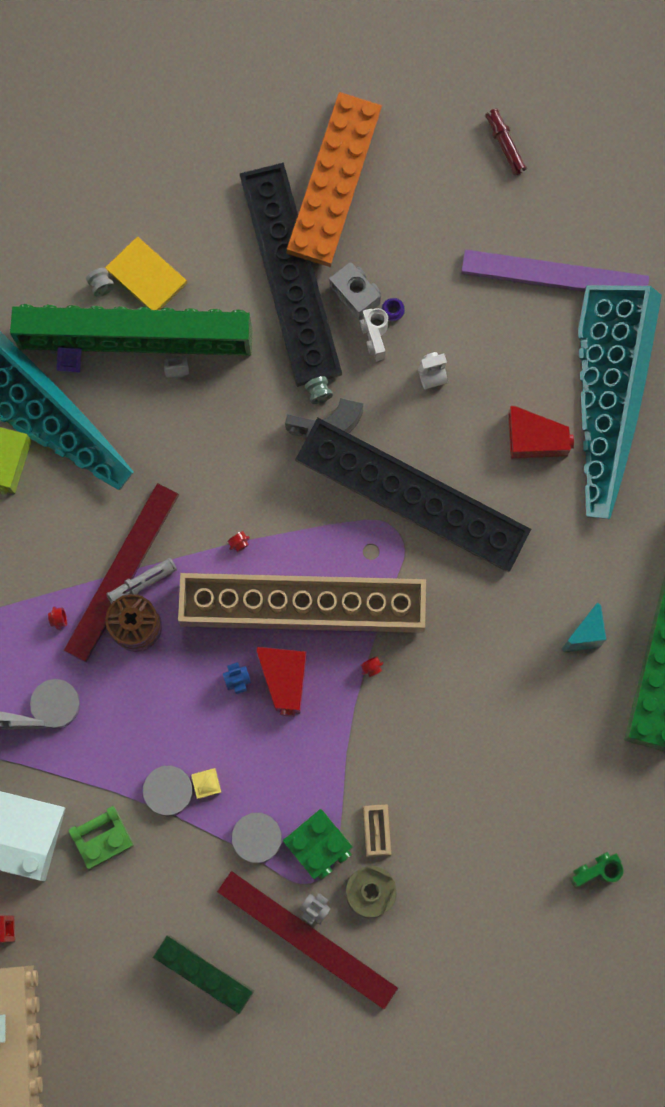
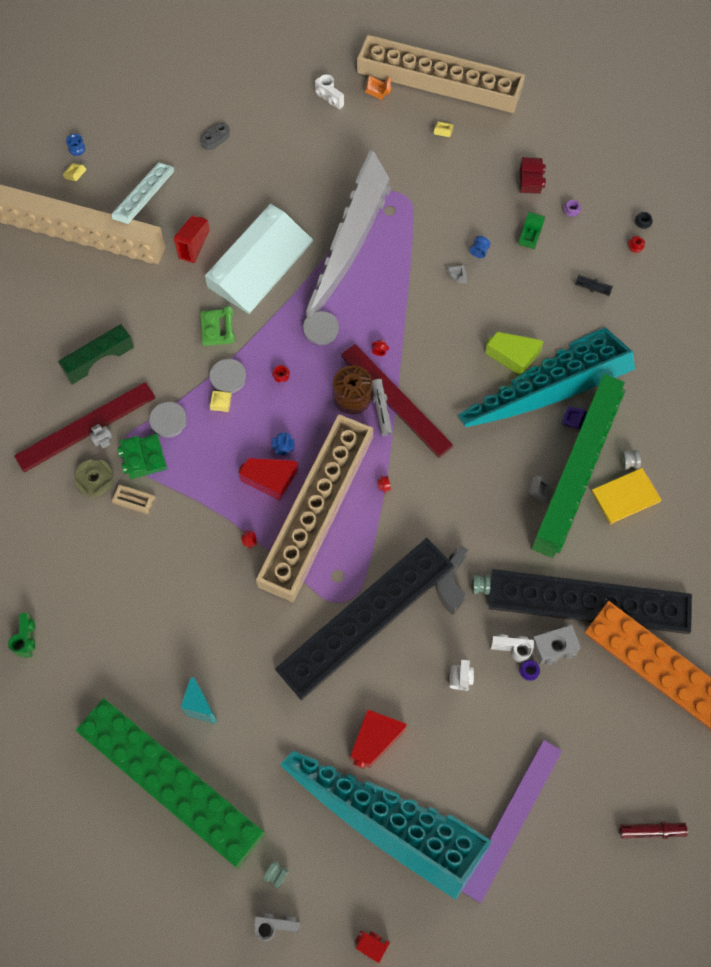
camera: 110 degrees right, 10 degrees down
(140, 718) = (280, 369): none -> red plate

